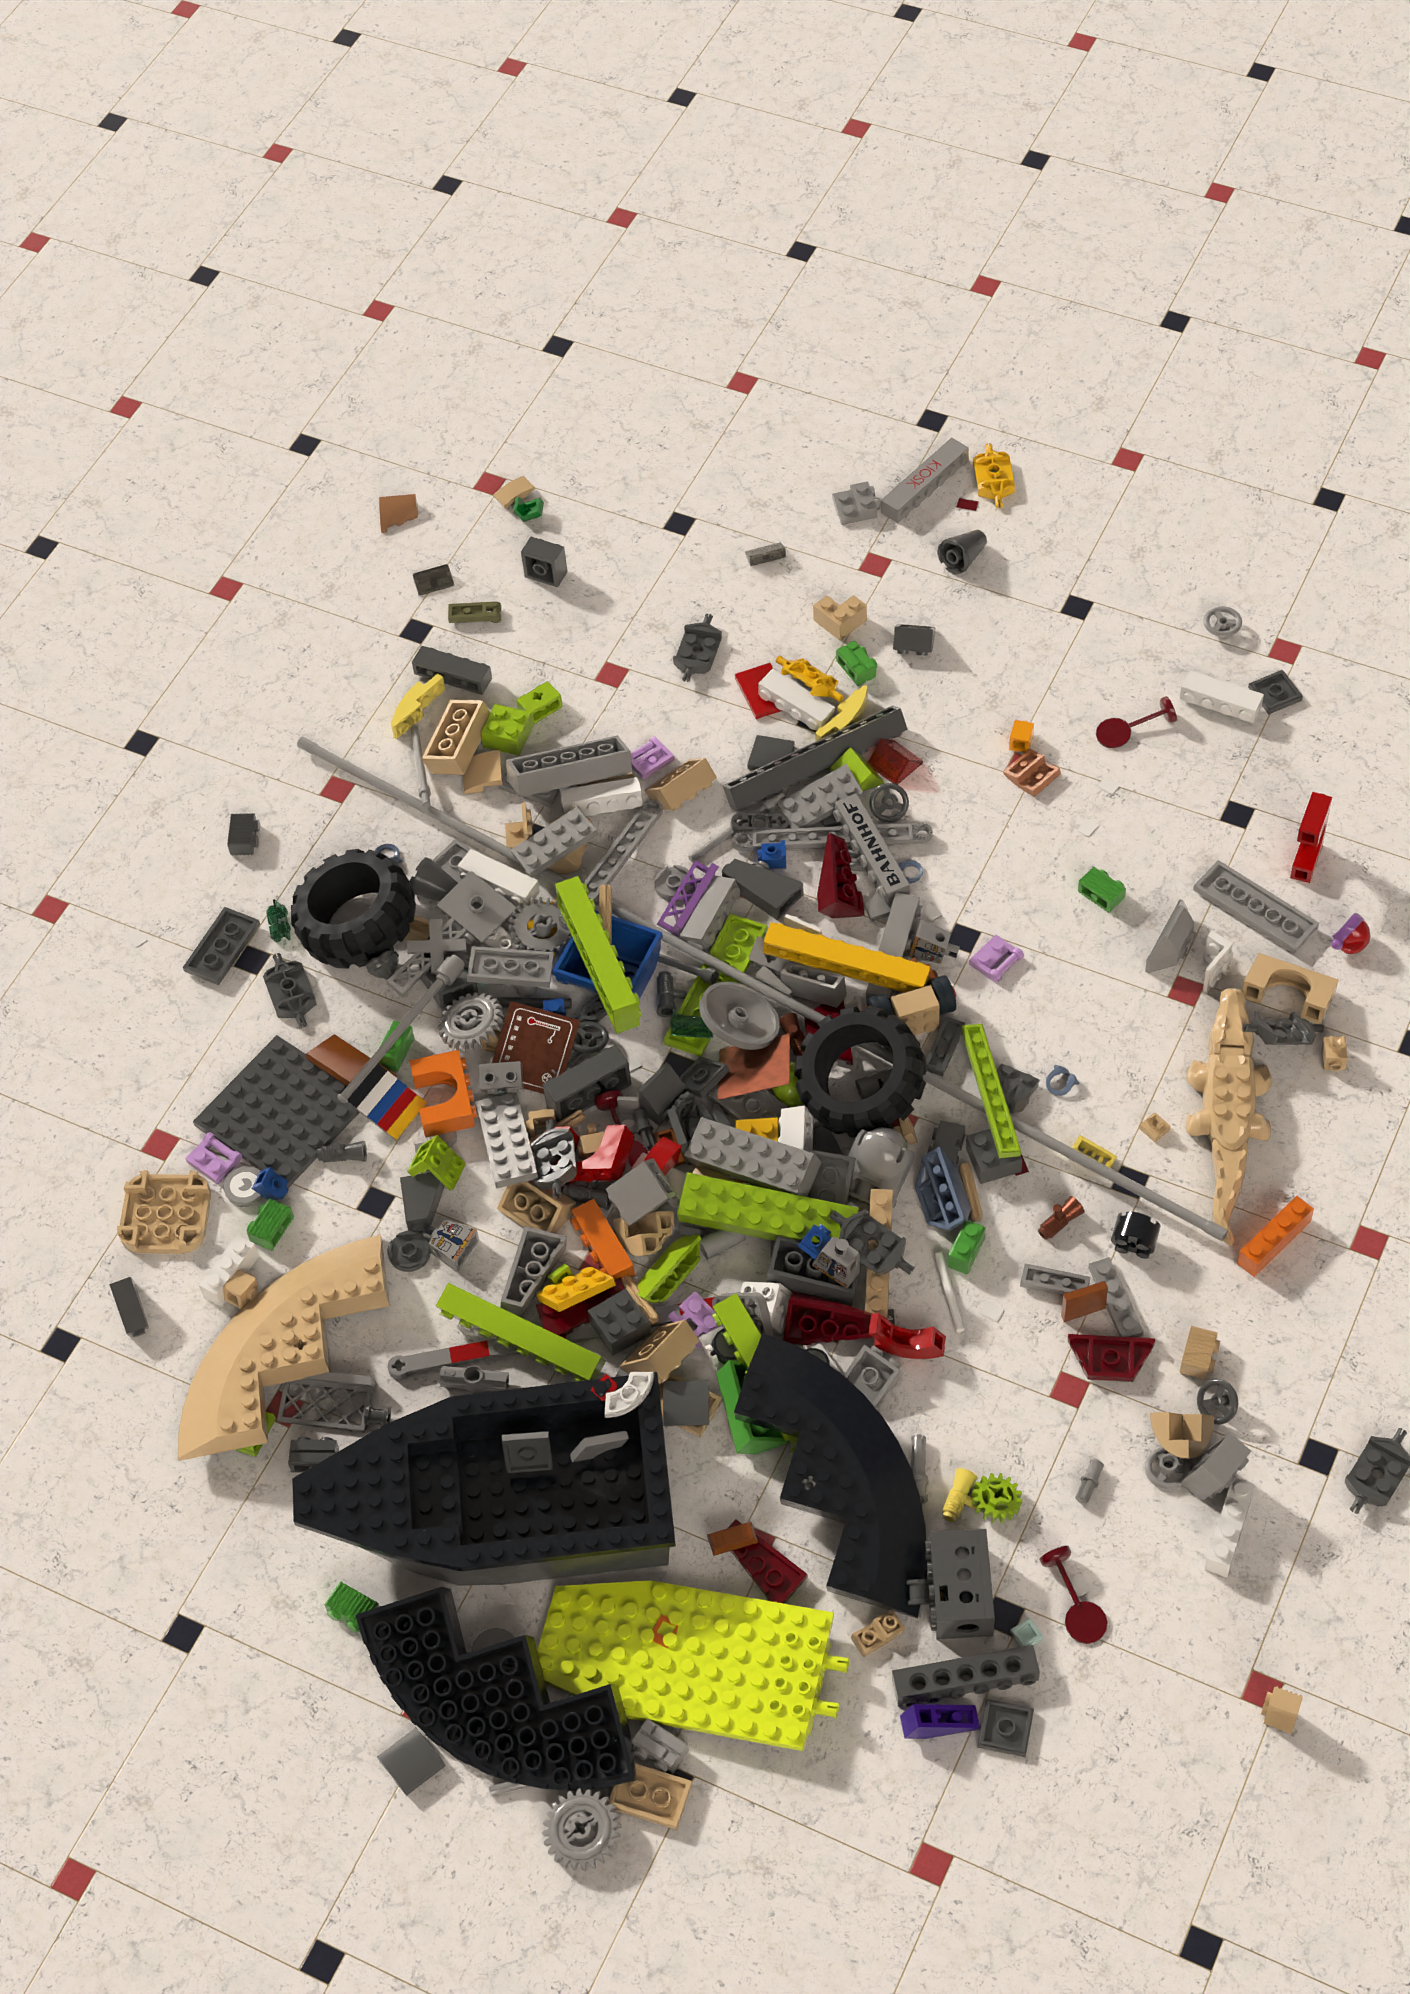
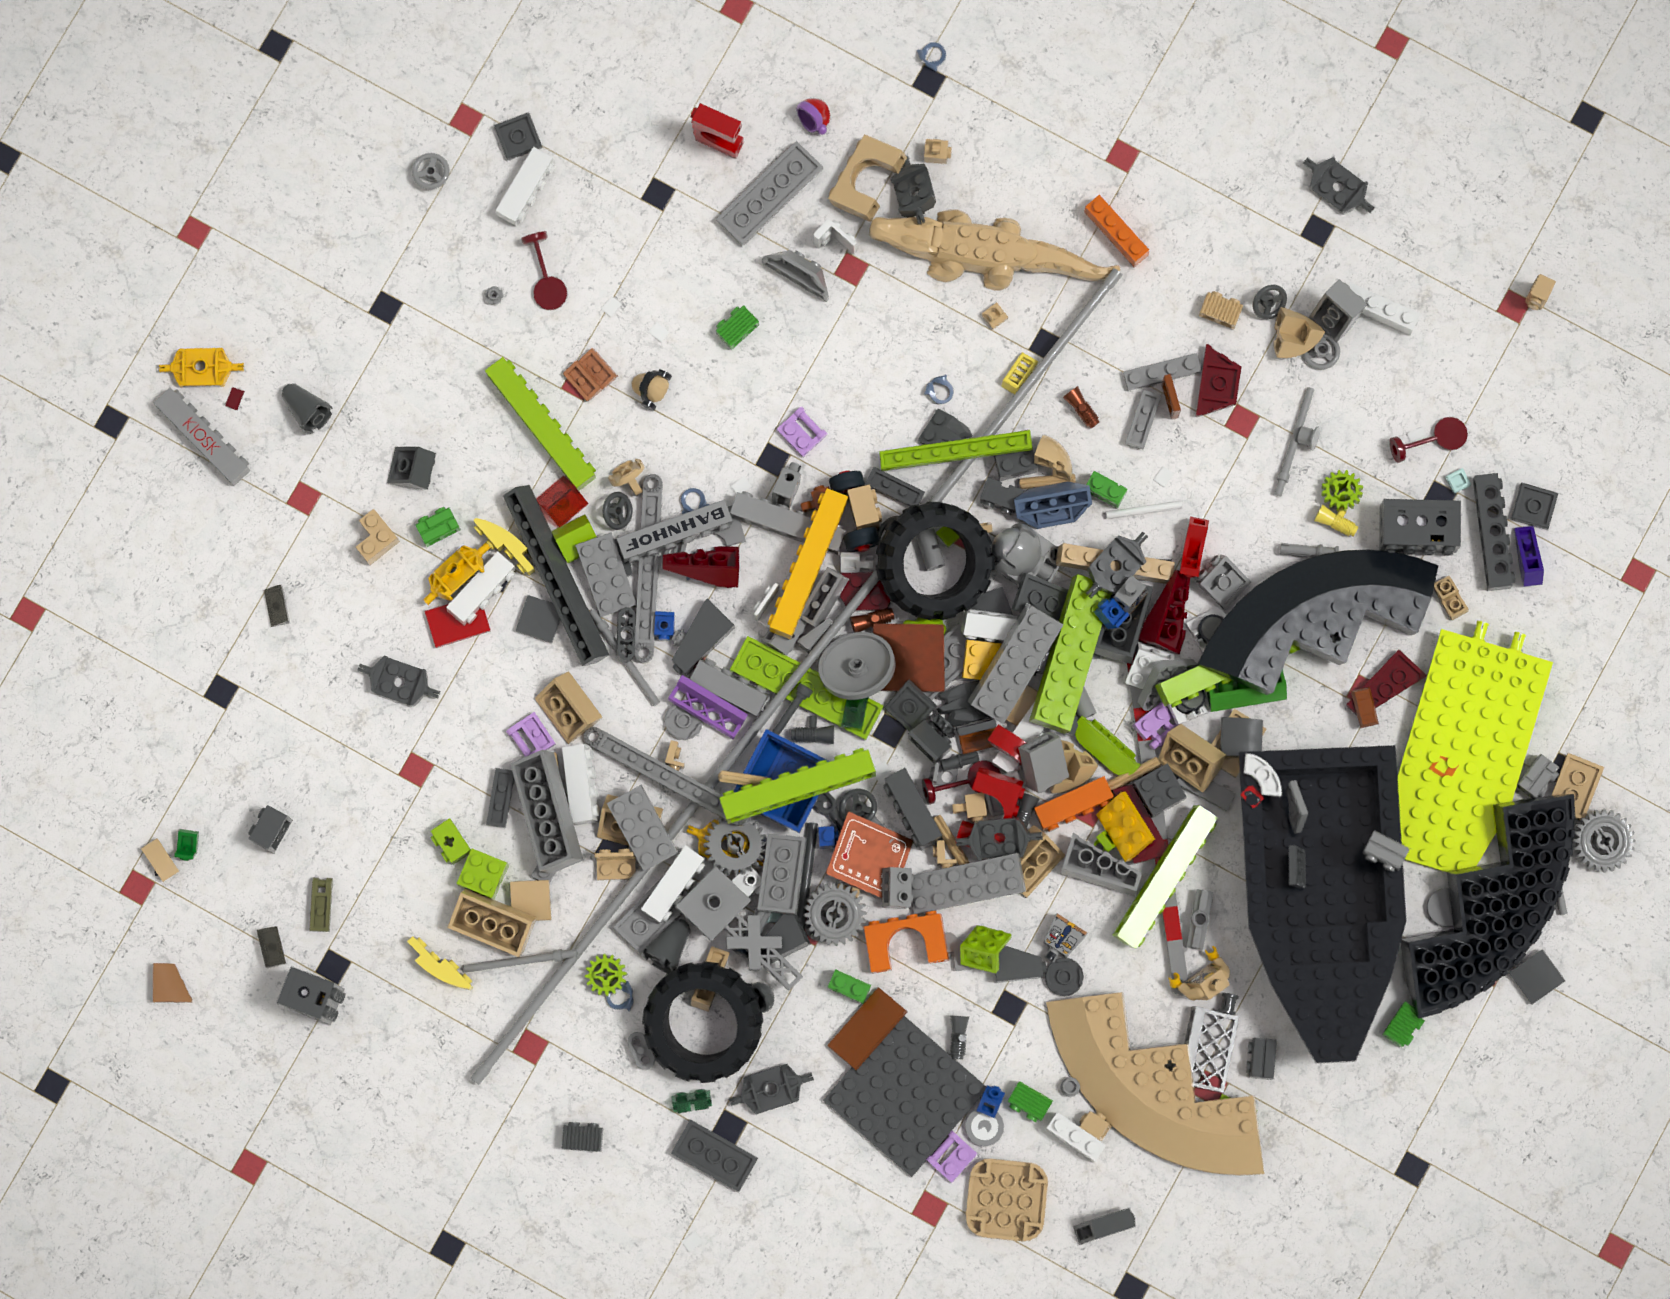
camera: 85 degrees left, 25 degrees up
(286, 1264) = (1070, 1086): none -> light grey plate
(377, 1091) = (905, 999): flag -> none
(379, 595) = (311, 995): none -> dark grey piece
(397, 838) = (606, 983): none -> lime gear
(401, 1387) = (1206, 982): none -> tan torso
(454, 669) = (400, 927): dark grey brick -> none
(541, 1531) = (1385, 851): none -> light grey brick
(573, 736) = (500, 798): none -> dark grey plate
(635, 872) = (674, 752): none -> tan bracket
(856, 504) = (222, 509): light grey plate -> none
(918, 1592) = (1424, 561): dark grey bush -> none
(925, 808) = (627, 473): none -> tan tile
(972, 734) = (540, 424): none -> lime brick
(999, 1186) = (1053, 455): none -> tan brick
(1006, 1435) = (1283, 476): none -> light grey bar
(1021, 736) = (548, 378): light orange brick -> none
(1026, 819) = (651, 387): none -> cap
(1058, 1458) = (1309, 436): none -> light grey piece
(1089, 1481) = (1330, 415): light grey axle -> none
(1102, 687) = (493, 290): none -> light grey plate
(1135, 1234) = (1108, 345): black brick -> none

